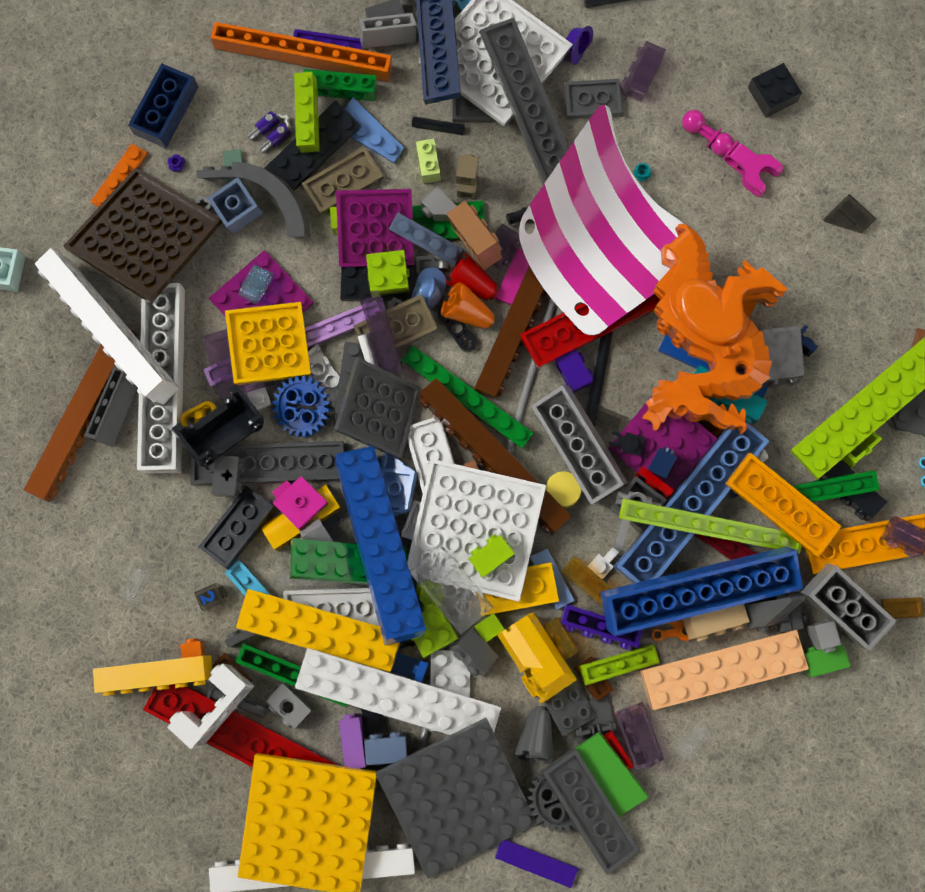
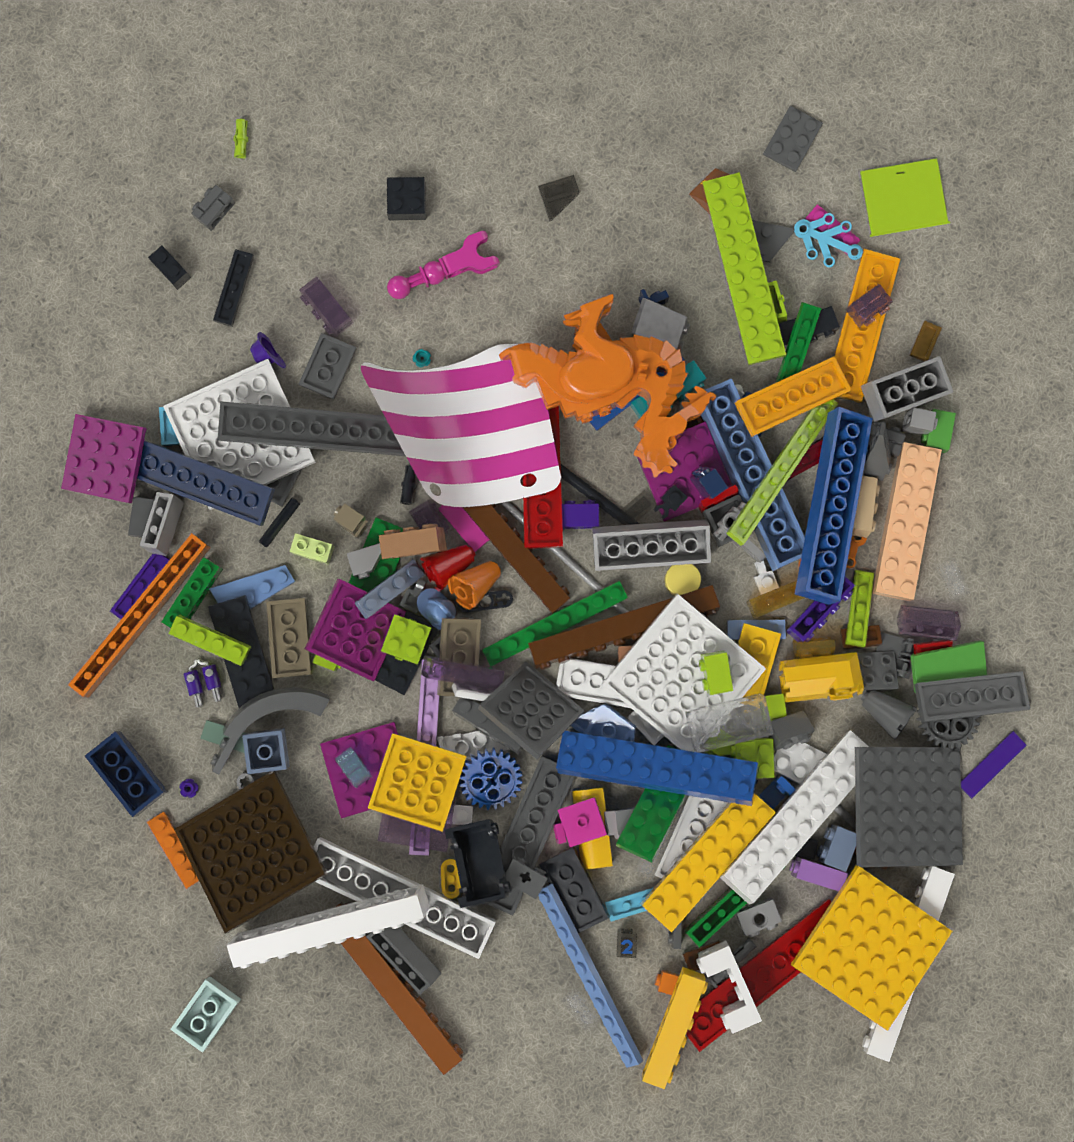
camera: 70 degrees left, 5 degrees up
(166, 579) = (590, 977): none -> medium blue plate

